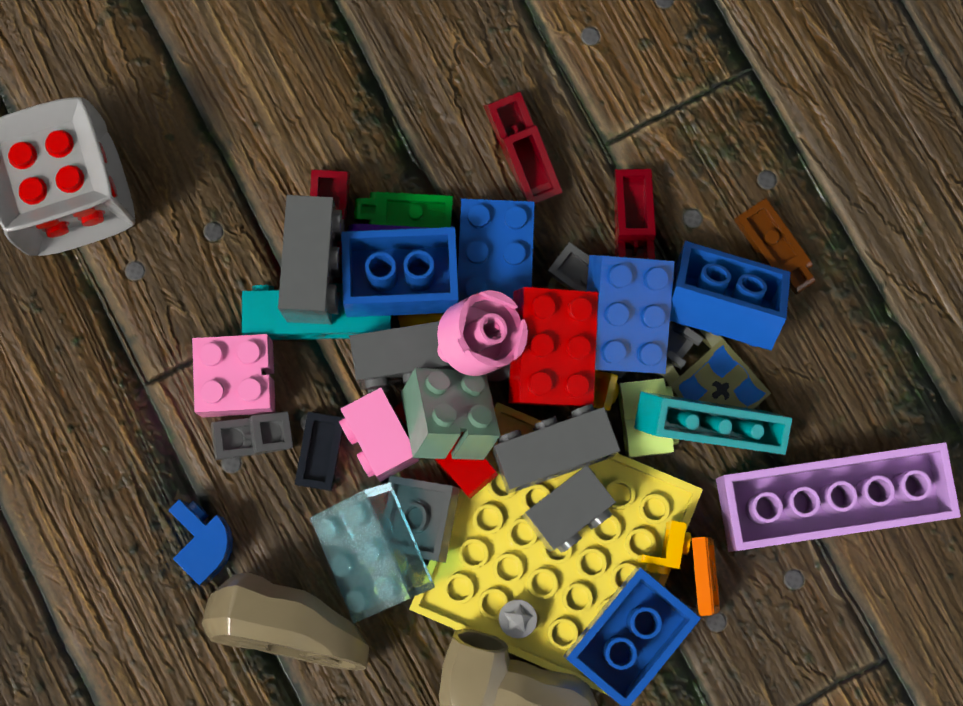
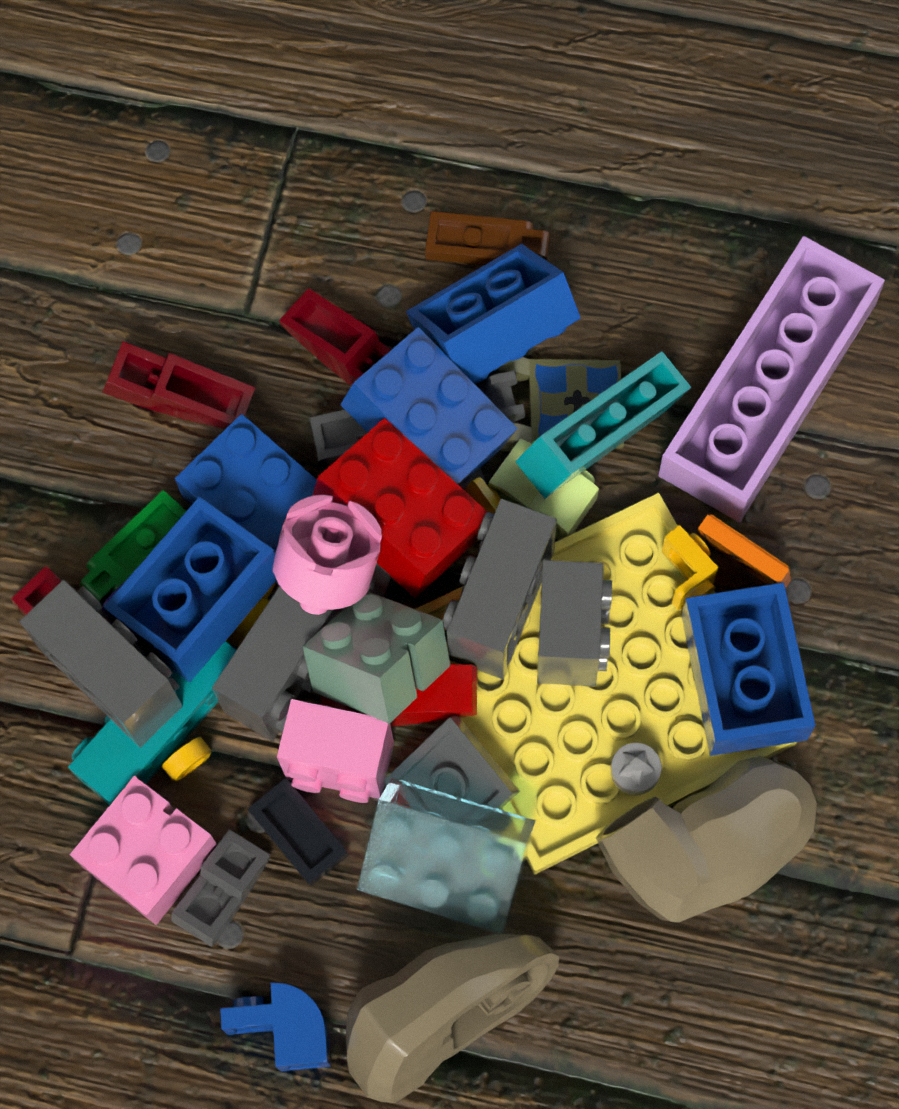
camera: 40 degrees left, 10 degrees down
(306, 352) = (187, 759): none -> yellow tile

